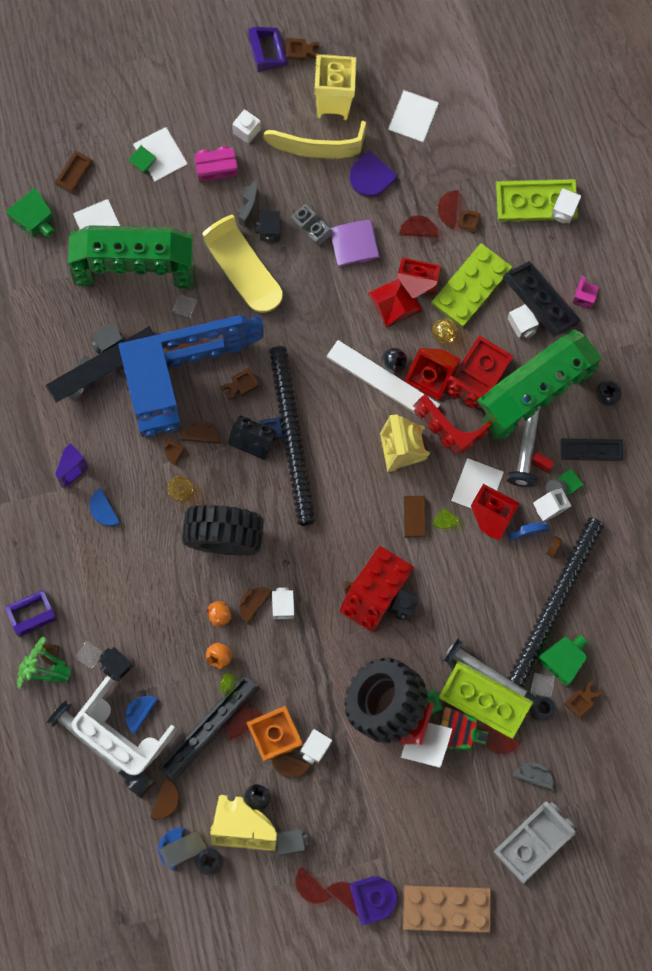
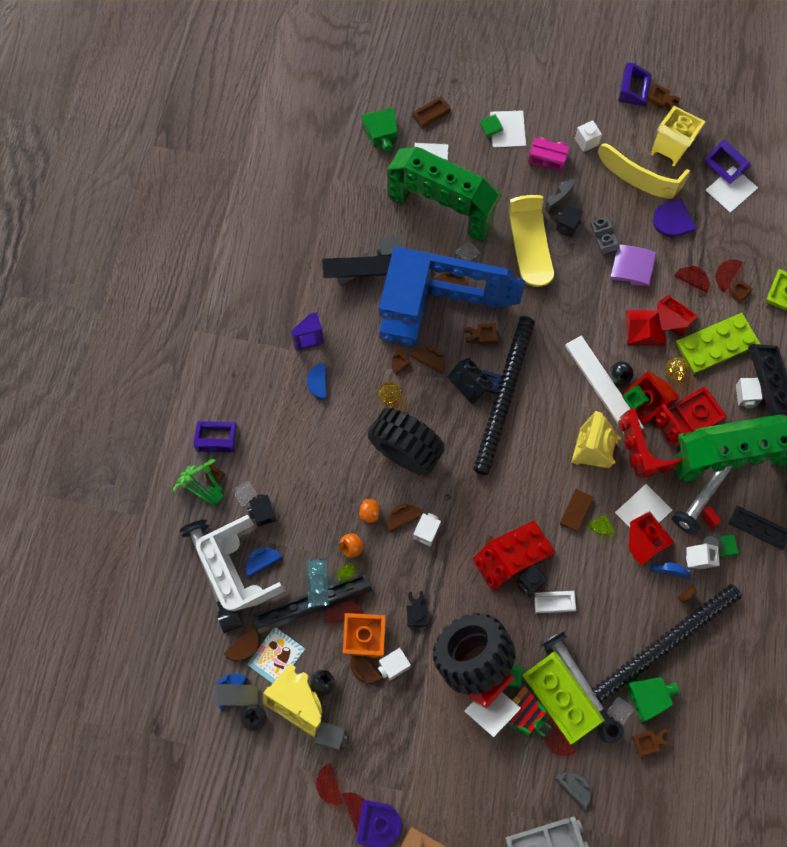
camera: 30 degrees right, 5 degrees down
(199, 795) = (275, 655): none -> sticker
(205, 706) = (317, 582): none -> clear light blue slope
(312, 688) = (416, 612): none -> black plate
(400, 79) = (741, 160): none -> dark purple tile
(419, 379) = (635, 398): none -> green tile
(435, 614) = (554, 602): none -> white tile

